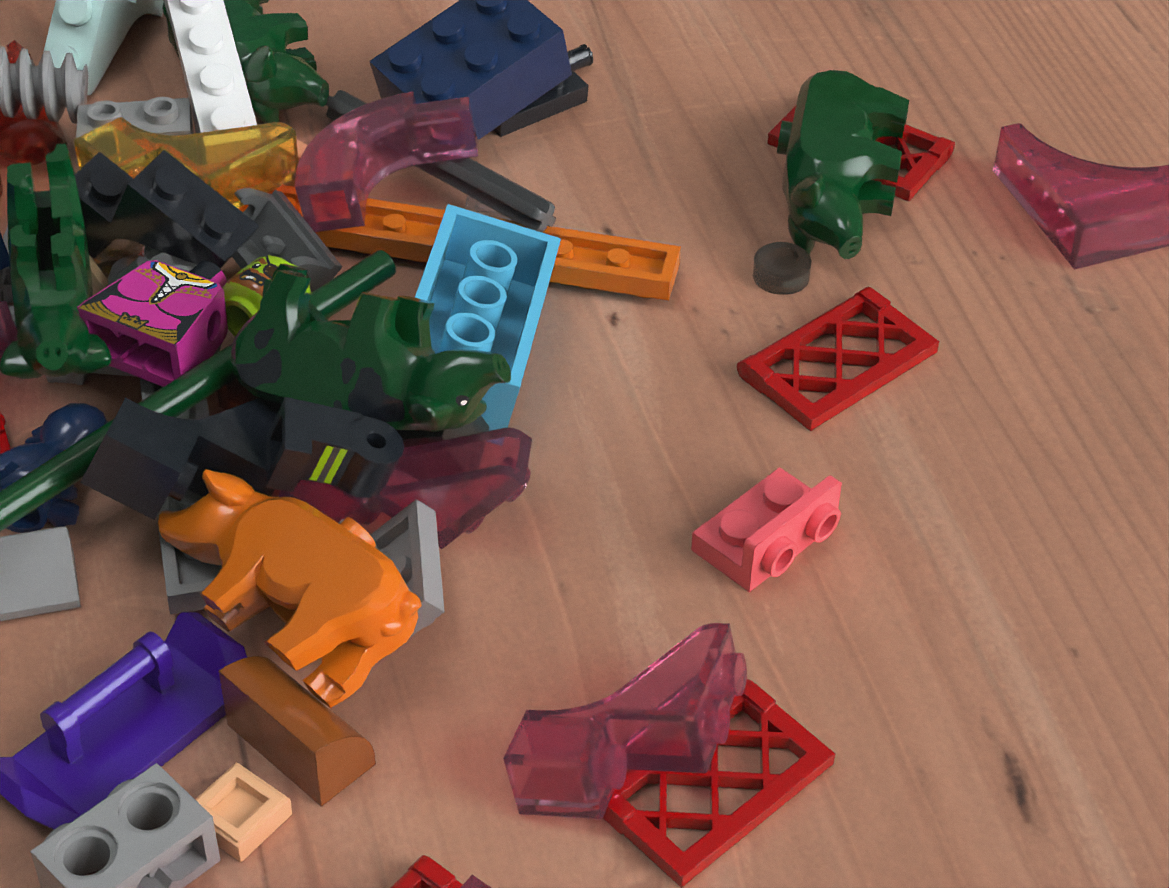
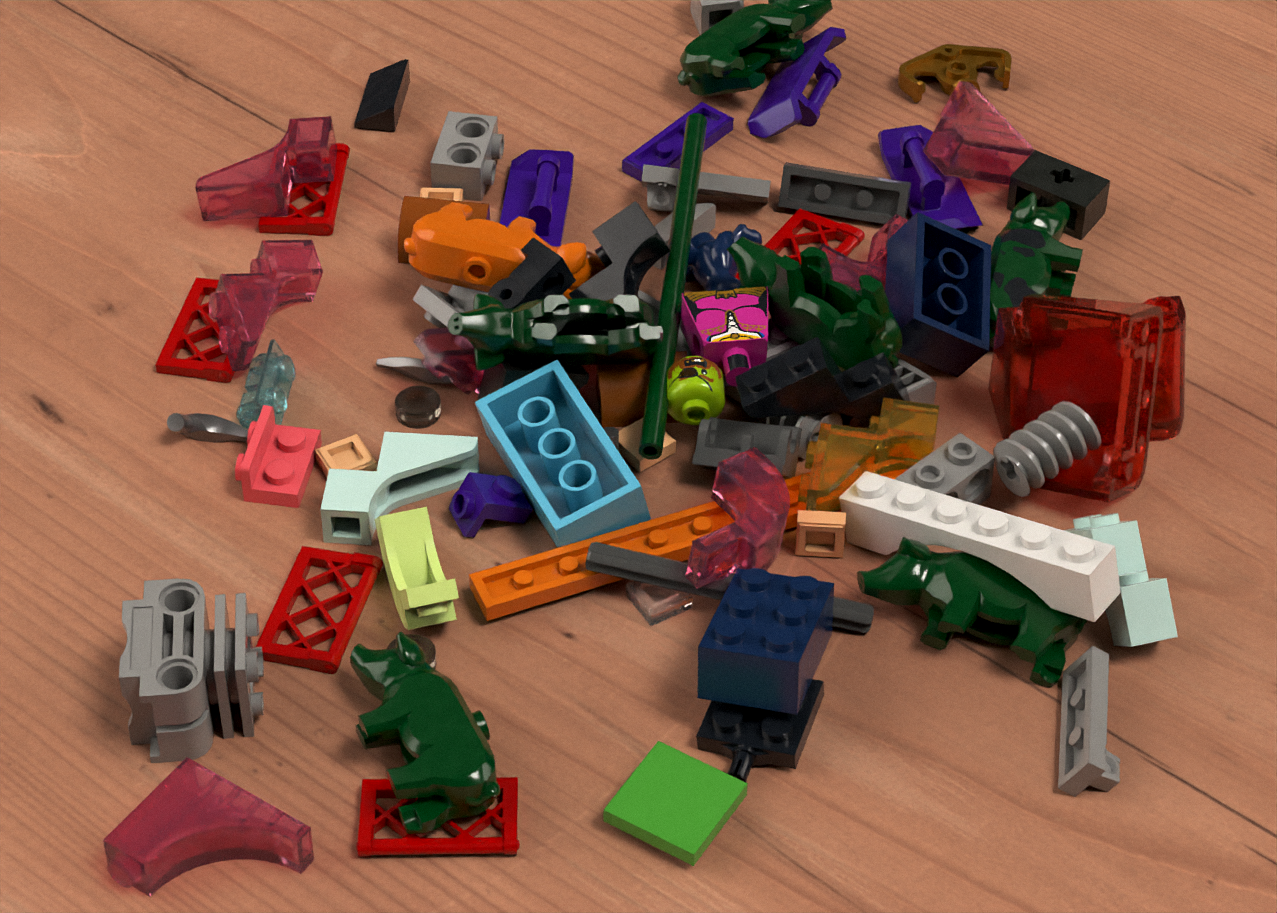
camera: 145 degrees right, 0 degrees up
(500, 556) = (411, 368): none -> flat silver bar
(546, 521) = (418, 407): none -> clear smoke tile
(577, 349) = (488, 498): none -> dark purple bracket
(641, 424) = (407, 471): none -> light aqua arch
(656, 52) = (675, 803): none -> bright green tile
(685, 495) = (345, 454): none -> light nougat tile
(724, 310) = (414, 570): none -> yellowish green arch
(731, 601) = (267, 384): none -> clear light blue hinge
(824, 622) = (206, 427): none -> flat silver bar
(1036, 297) = (182, 668): none -> light grey piece

